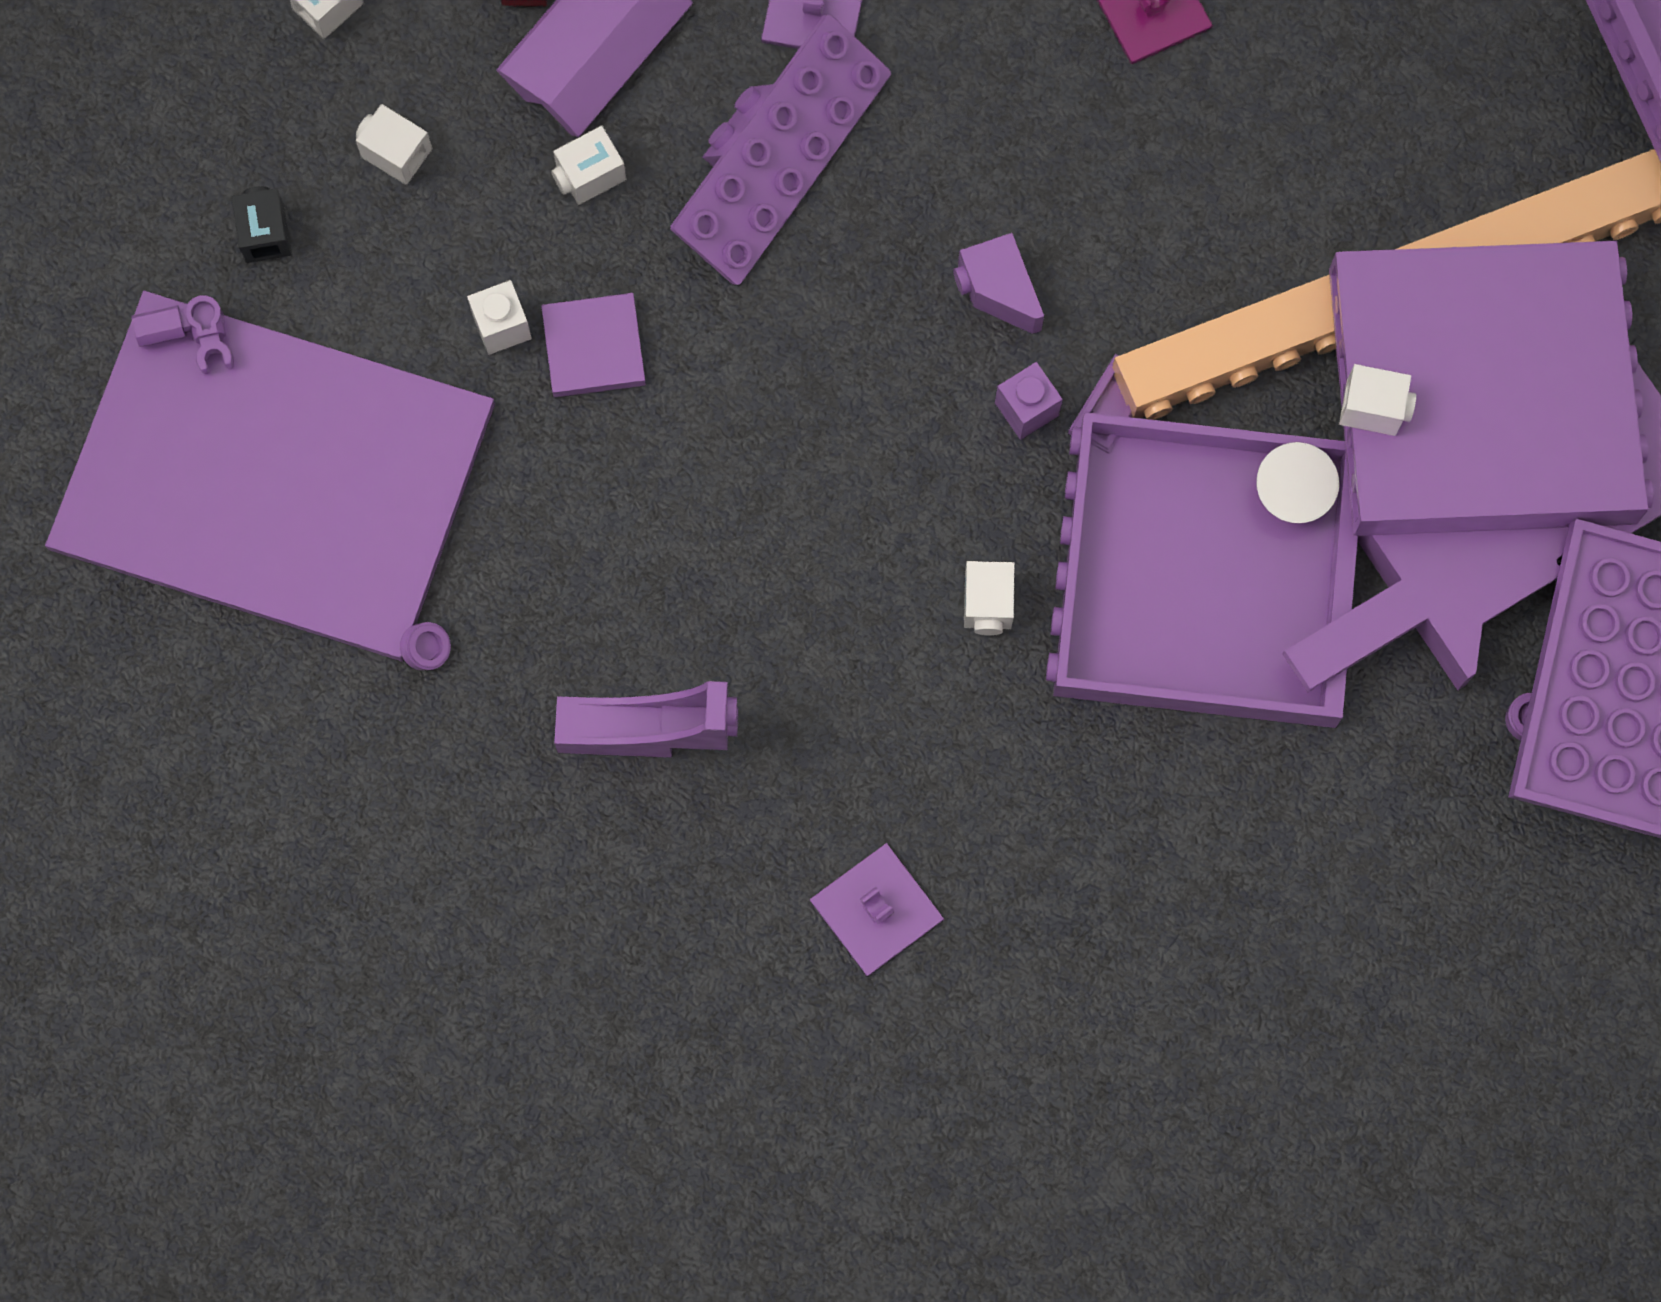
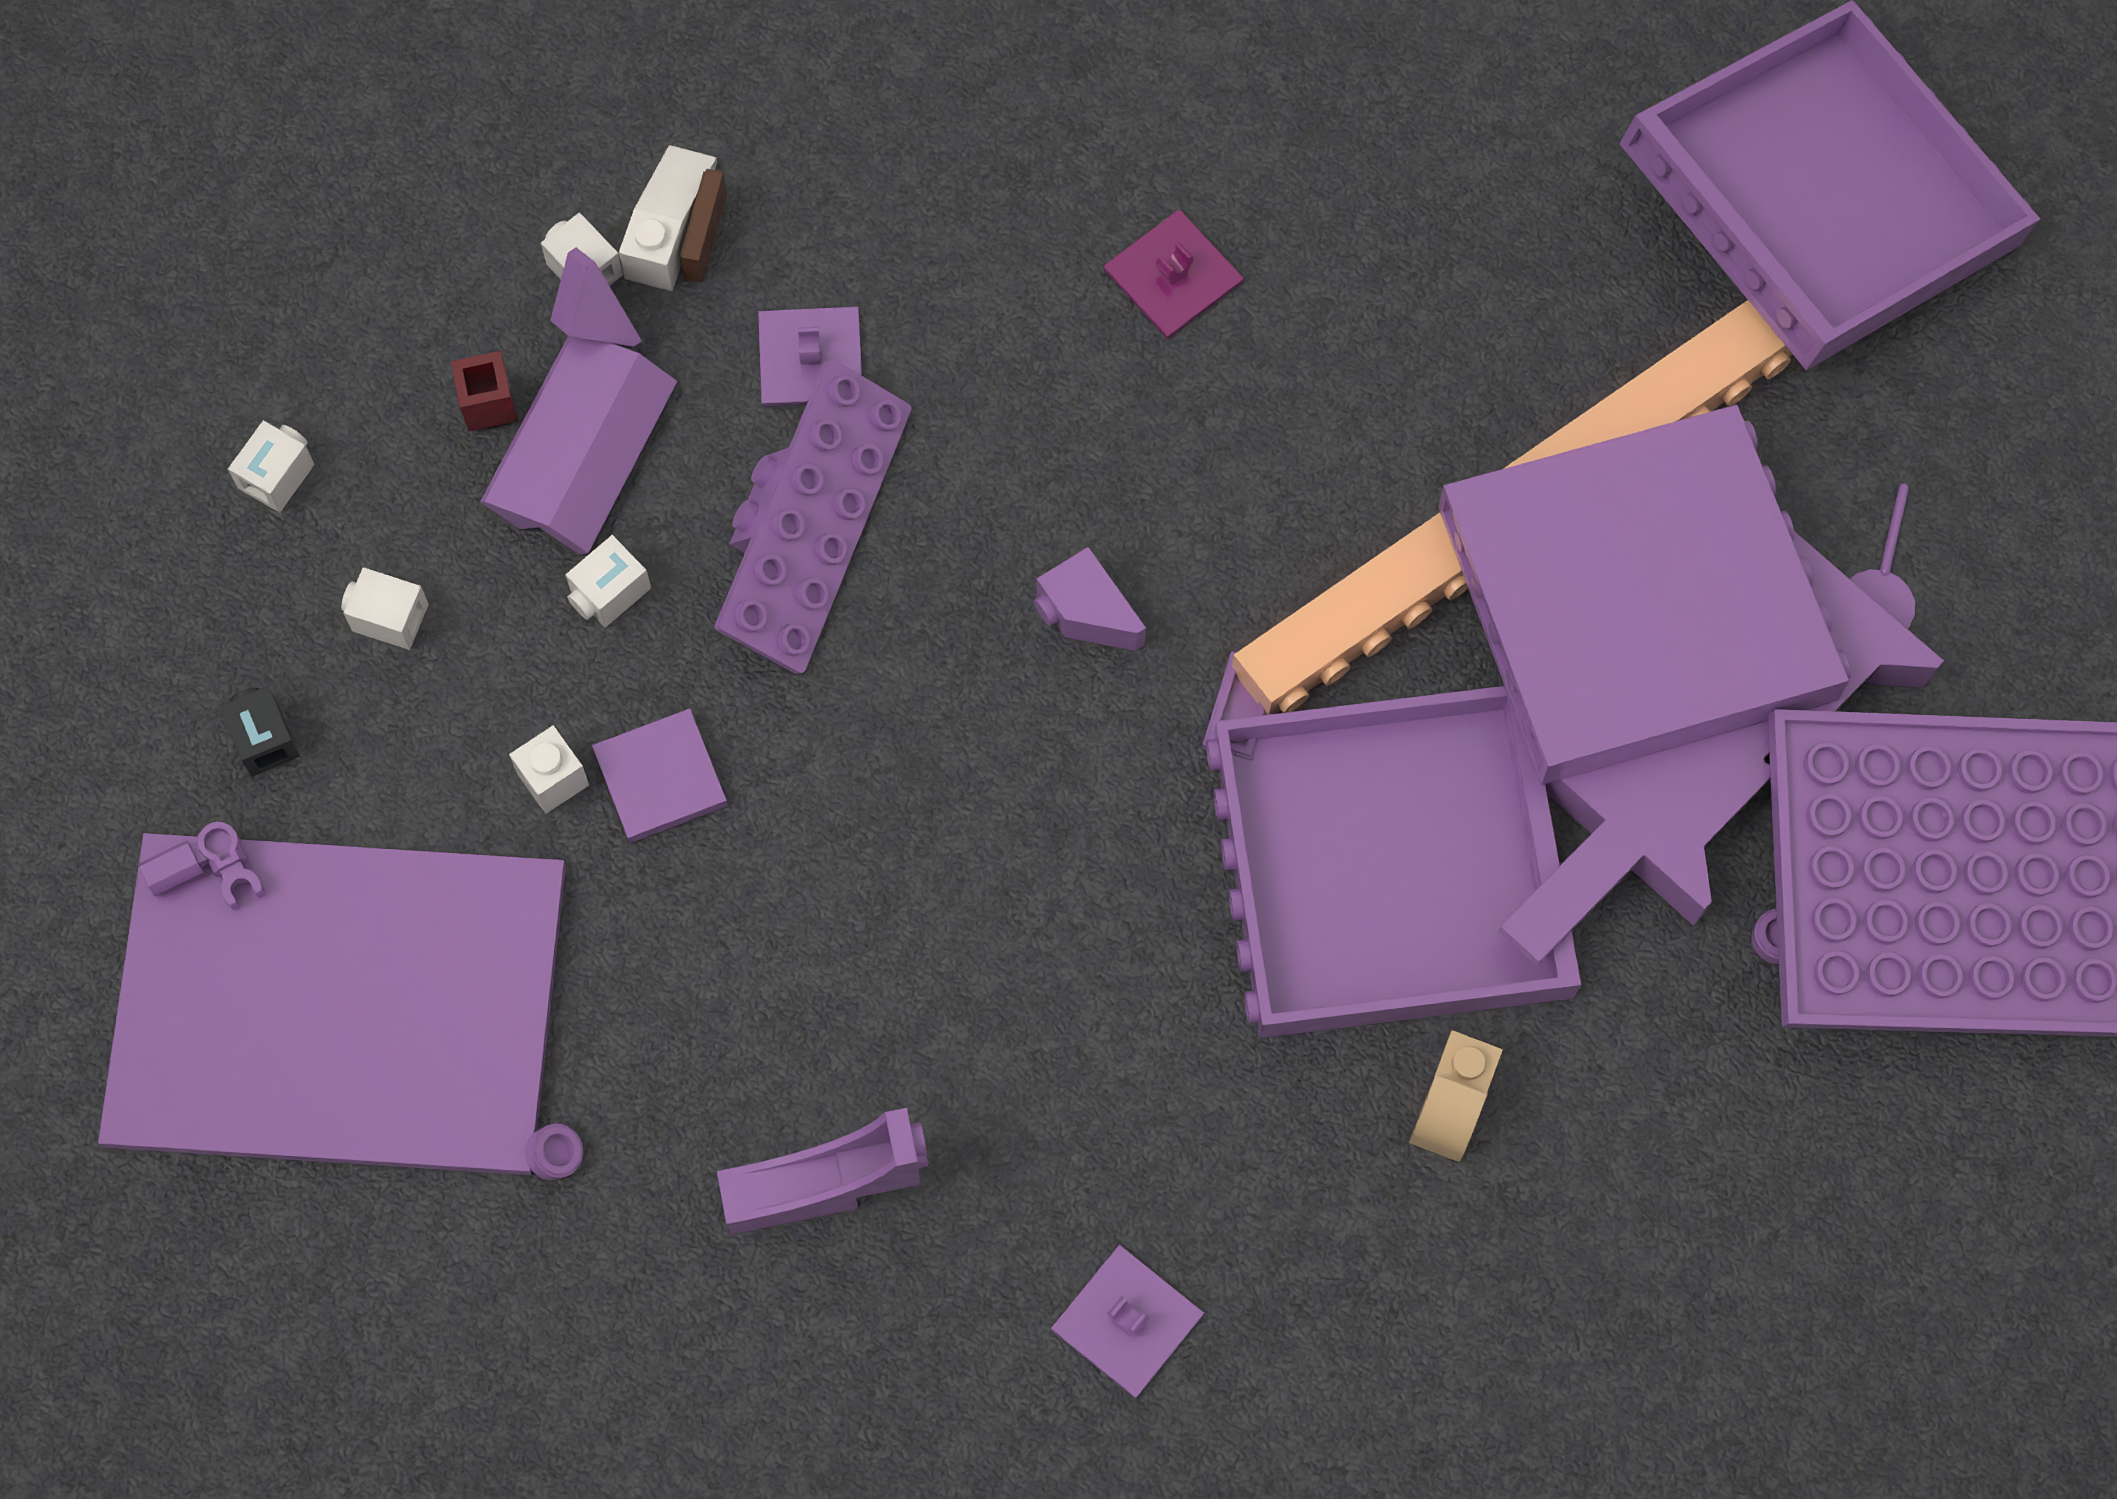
camera: 15 degrees left, 5 degrees down
(989, 597) = (1163, 946): white brick -> none
(1028, 400) = (1151, 723): medium lavender brick -> none
(1208, 786) = (1456, 1096): none -> tan brick
(1297, 482) = (1465, 742): white sticker -> none
(1377, 400) = (1531, 632): white brick -> none

